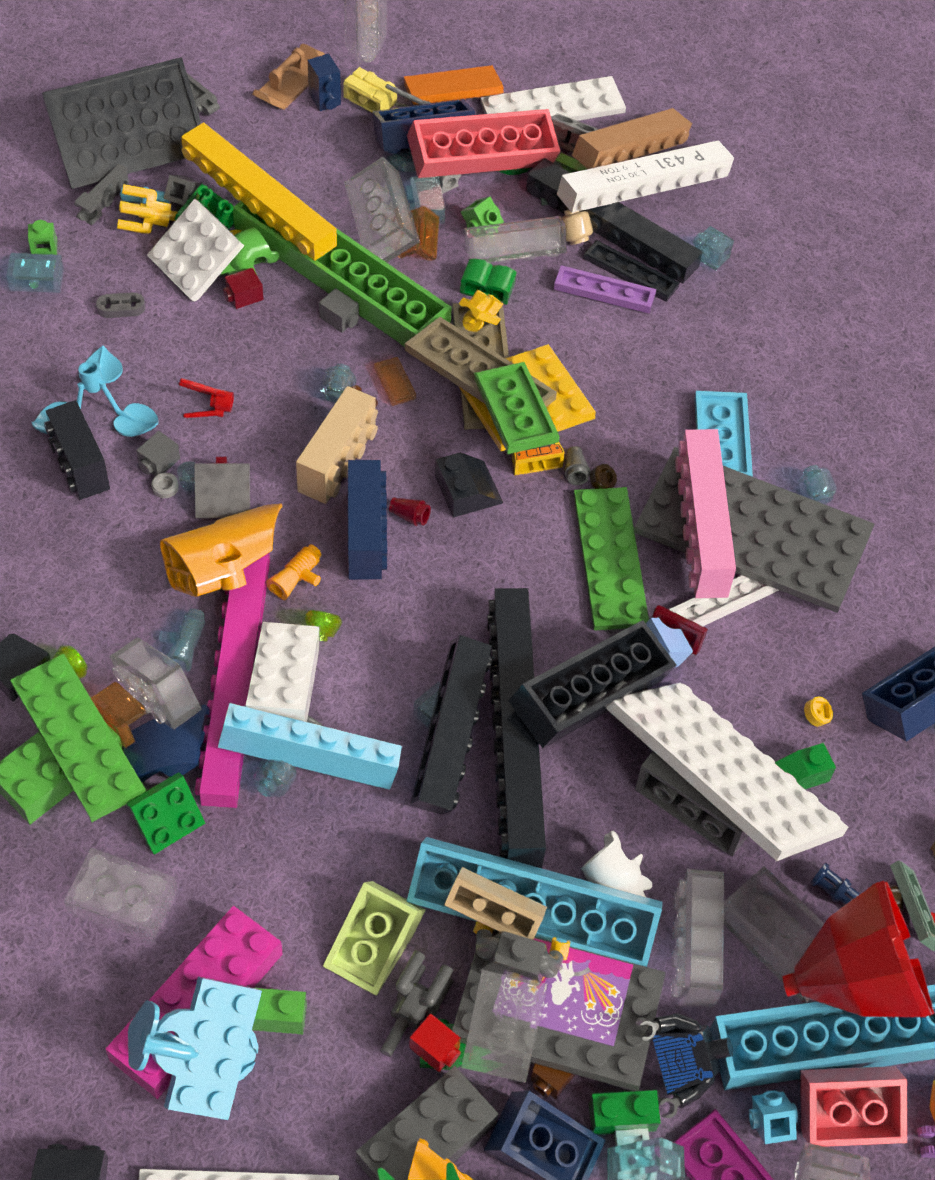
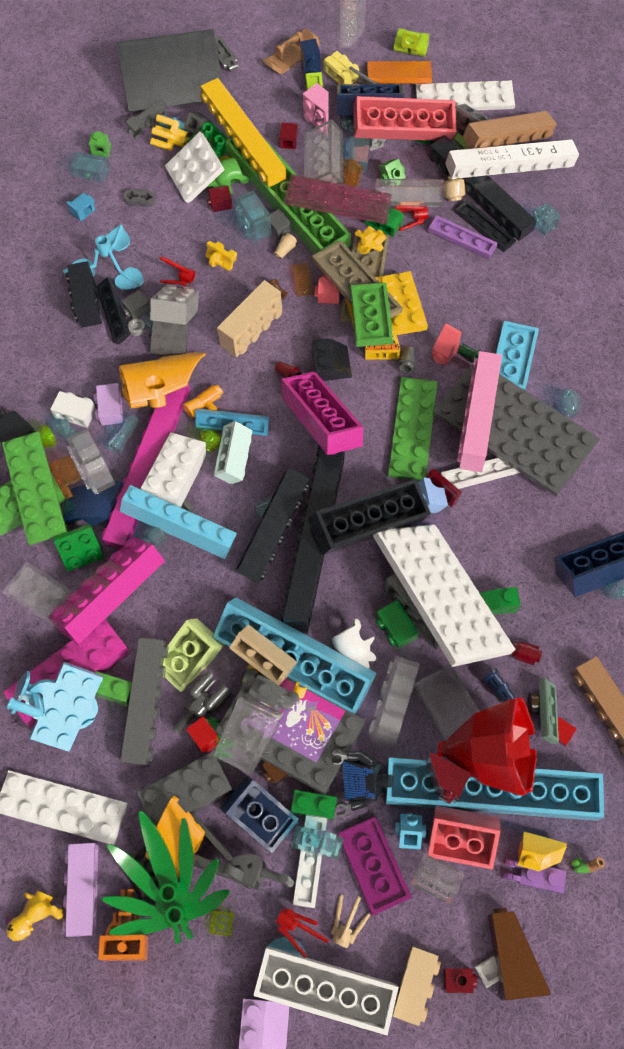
camera: 20 degrees right, 10 degrees up
(36, 329) = (81, 206): none -> dark azure brick
(94, 648) = (62, 428): none -> clear light blue piece
(101, 616) = (73, 408): none -> white brick
(125, 468) = (113, 310): none -> black plate
(155, 600) = (109, 404): none -> lavender brick
(221, 441) = (174, 304): none -> light grey brick
(227, 865) = (106, 589): none -> dark pink brick
(264, 366) = (217, 255): none -> yellow hips
(301, 305) = (252, 217): none -> clear light blue brick
(320, 189) = (288, 135): none -> dark red brick
(327, 1018) = (144, 702): none -> dark grey brick
(335, 112) = (313, 78): none -> lime plate
(336, 380) = (263, 272): clear light blue head -> none
(347, 593) = (217, 419): none -> dark azure tile
(352, 143) = (316, 105): none -> bright pink slope
(357, 336) = (285, 245): none -> tan cone
(362, 635) = (233, 453): none -> light aqua brick
(367, 519) = (255, 373): dark blue brick -> none
(420, 262) = (338, 199): none -> clear pink plate
(435, 390) = (326, 291): none -> coral slope
(459, 44) = (411, 42): none -> lime piece
(483, 553) = (322, 413): none -> dark pink brick
(534, 266) = (419, 213): none -> red plant
(603, 477) = (423, 371): dark brown tile -> none
(627, 434) = (446, 345): none -> coral slope
(660, 442) = (468, 352): none -> dark green axle
(668, 831) = (396, 624): none -> green brick
(810, 1021) = (446, 778): none -> dark red slope
(818, 711) = (522, 562): yellow tile -> none
(862, 833) = (526, 652): none -> dark red brick

